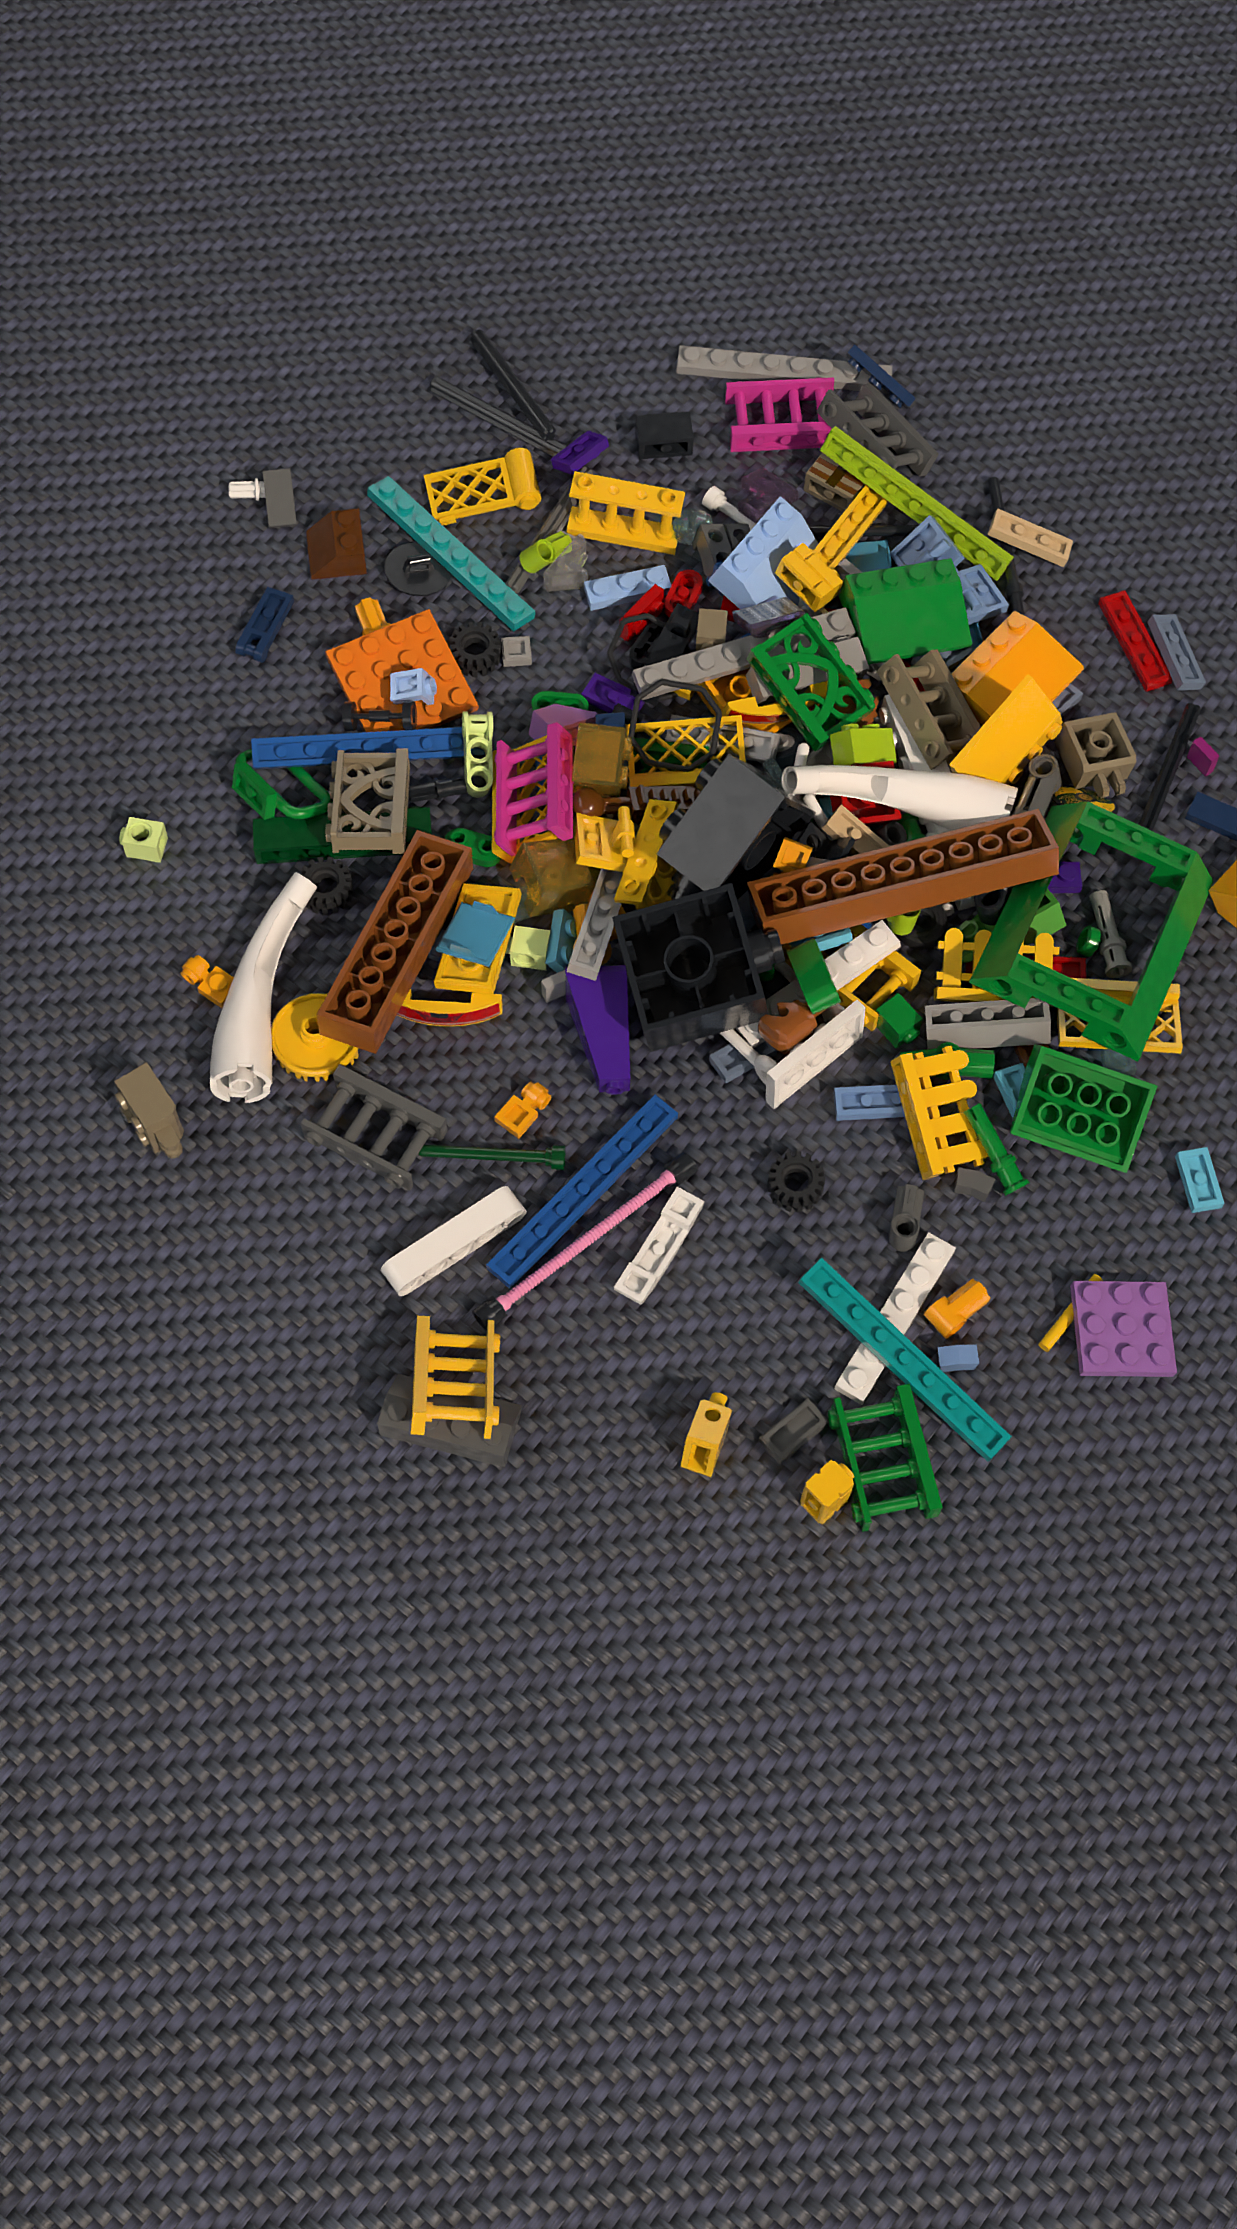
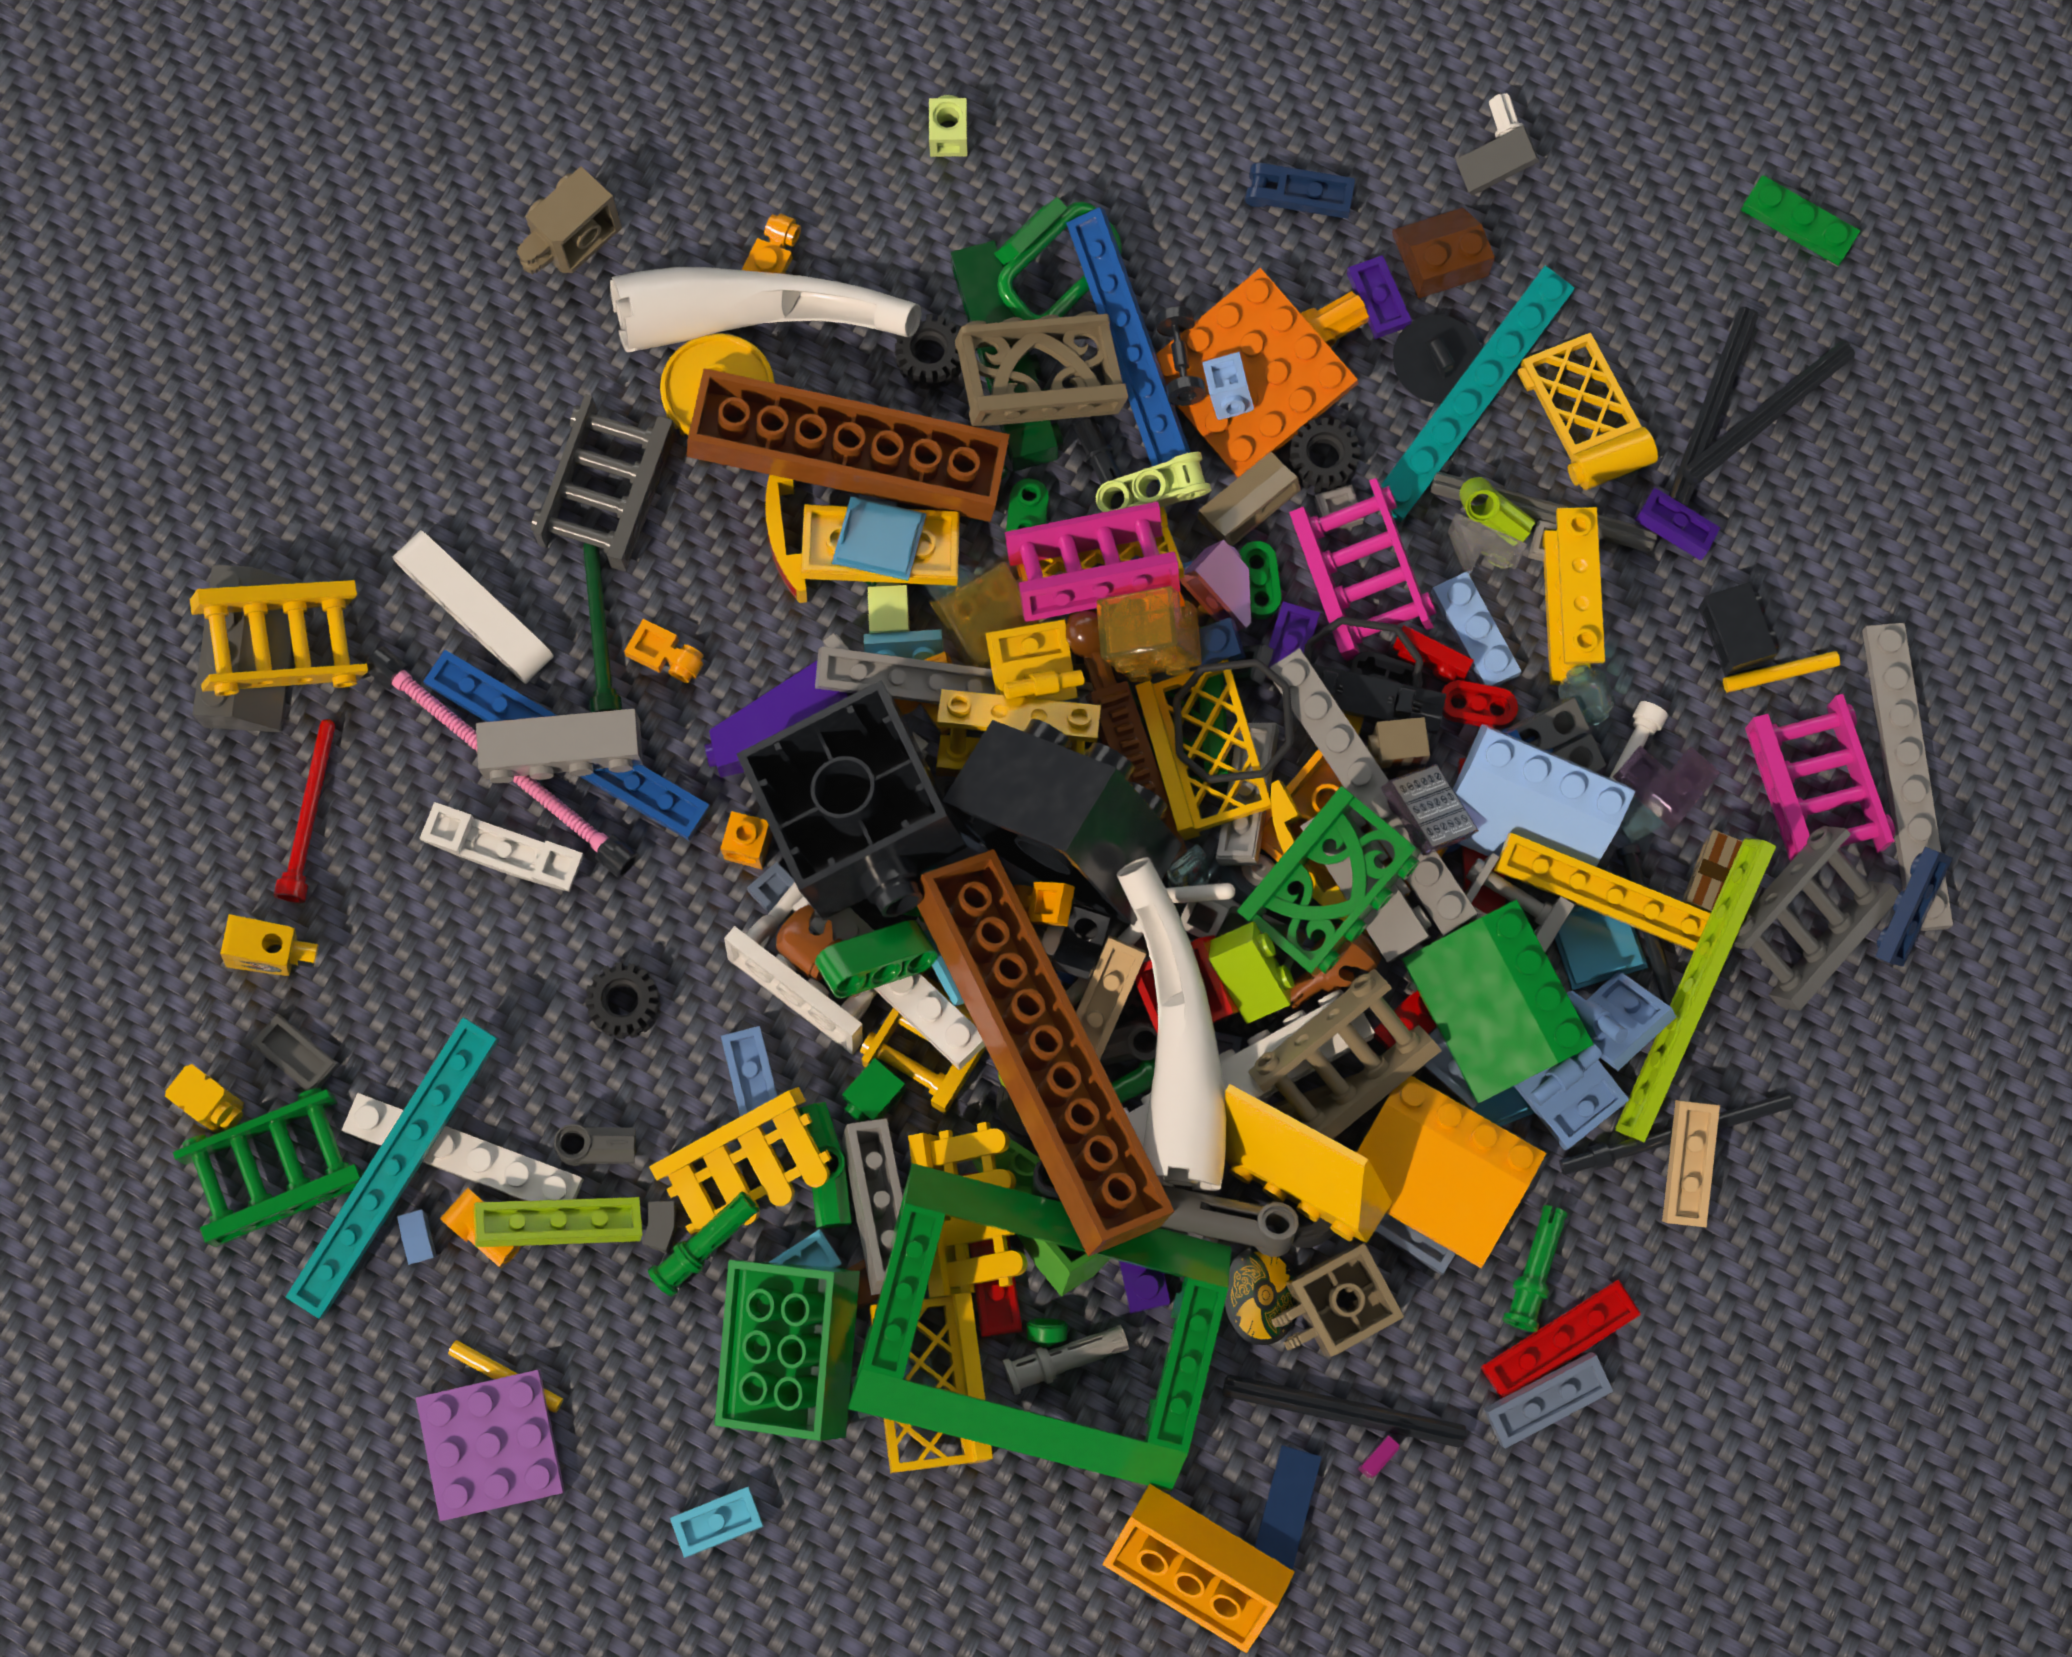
camera: 80 degrees right, 10 degrees up
(350, 592) = (1380, 295): none -> dark purple plate
(373, 340) = (1800, 220): none -> green plate
(495, 698) = (1249, 500): none -> dark tan piece
(559, 664) = (1325, 563): none -> dark pink fence
(589, 1185) = (559, 745): none -> light grey brick
(656, 1411) = (292, 885): none -> red piece
(688, 1072) = (746, 840): none -> light orange brick
(696, 419) = (1781, 671): none -> yellow bar
(809, 577) = (1512, 855): yellow brick -> none
(964, 1248) = (557, 1222): none -> lime plate
(1099, 646) = (1532, 1285): none -> green pin

